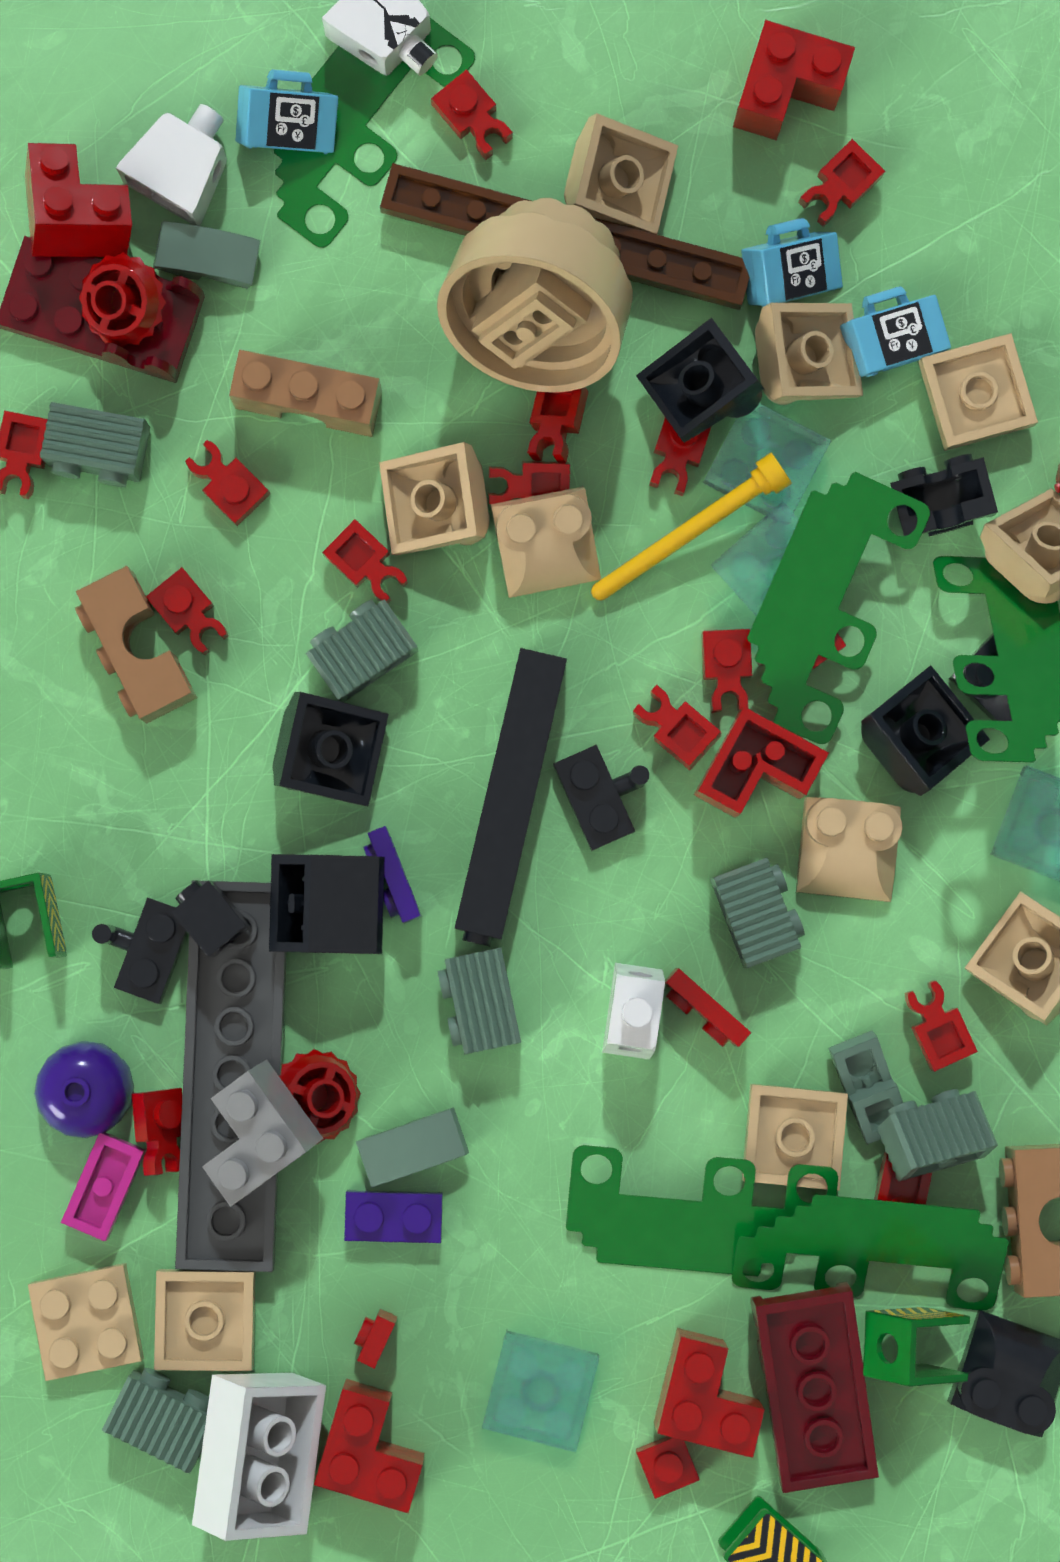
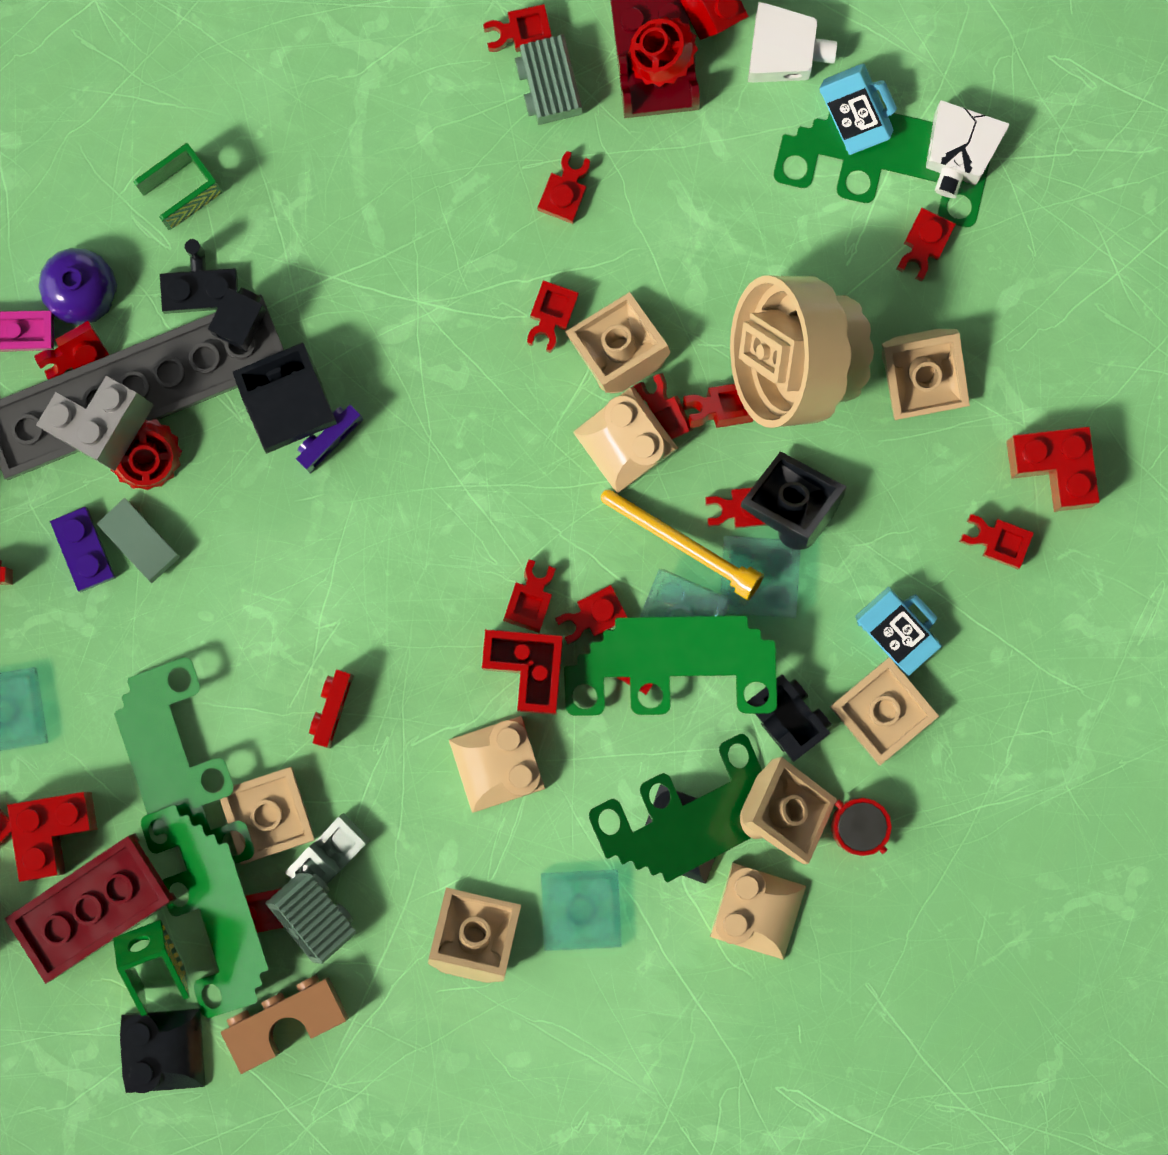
camera: 75 degrees right, 0 degrees up
(113, 610) = (432, 149): medium nougat arch -> none
(184, 606) = (460, 198): red plate -> none
(206, 253) = (728, 96): sand green slope -> none
(286, 386) = (656, 215): medium nougat arch -> none
(329, 748) = (400, 350): black slope -> none
(361, 649) = (484, 341): sand green brick -> none
(481, 1001) = (265, 542): sand green brick -> none
(510, 796) = (423, 497): black brick -> none
(597, 796) = (454, 562): black plate -> none
(634, 1011) = (307, 655): white torso -> none
(644, 255) = (872, 408): reddish brown plate -> none
(757, 912) = (419, 715): sand green brick -> none
(793, 265) = (917, 530): medium azure piece -> none
(805, 352) = (854, 570): tan slope -> none
(920, 733) = (605, 771): black slope -> none
(941, 1034) = (389, 891): red plate -> none

